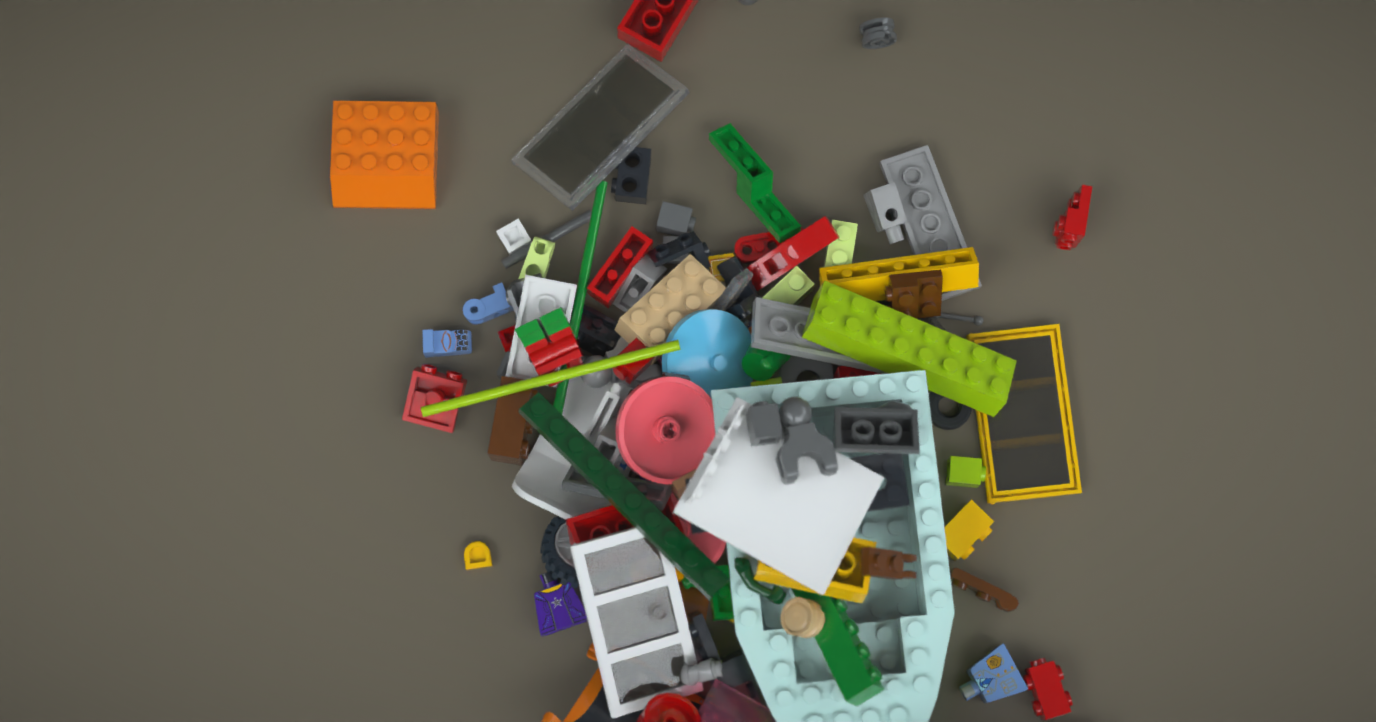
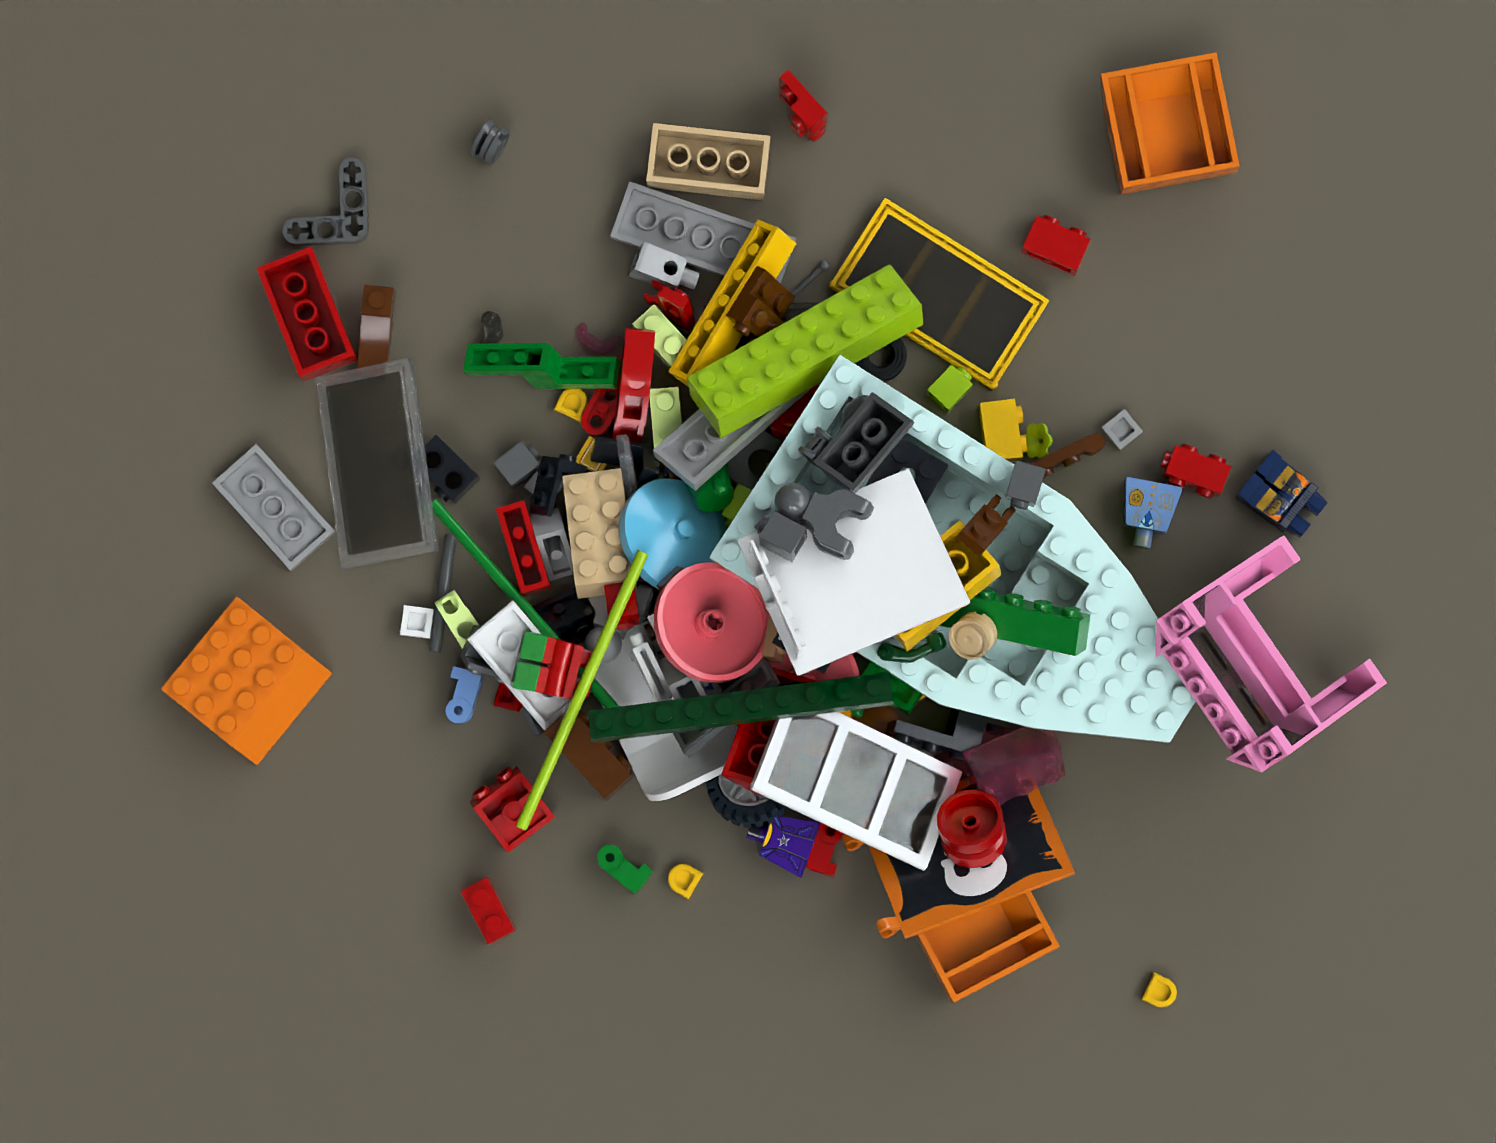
camera: 45 degrees left, 5 degrees up
(351, 437) = (488, 910): none -> red brick
(446, 343) = (468, 758): medium blue leg -> none
(451, 497) = (613, 862): none -> green leg
(517, 83) = (273, 507): none -> light grey plate
(570, 637) = (822, 851): none -> red leg
(695, 53) = (376, 325): none -> reddish brown slope
(704, 671) = (948, 758): light grey arm -> none
(746, 224) = (572, 404): none -> yellow tile
(755, 132) = (492, 327): none -> clear smoke arm
(798, 208) = (594, 343): none -> clear pink piece
(848, 400) = (815, 445): none -> dark grey bush
(868, 237) = (674, 305): none -> red plate
(938, 570) = (1024, 485): none -> dark grey brick
(978, 561) = (1038, 440): none -> lime plant
(985, 186) = (708, 161): none -> tan brick
(1033, 615) = (1121, 430): none -> light grey tile
(1124, 466) = (1056, 244): none -> red brick
(1272, 478) = (1168, 123): none -> orange slope

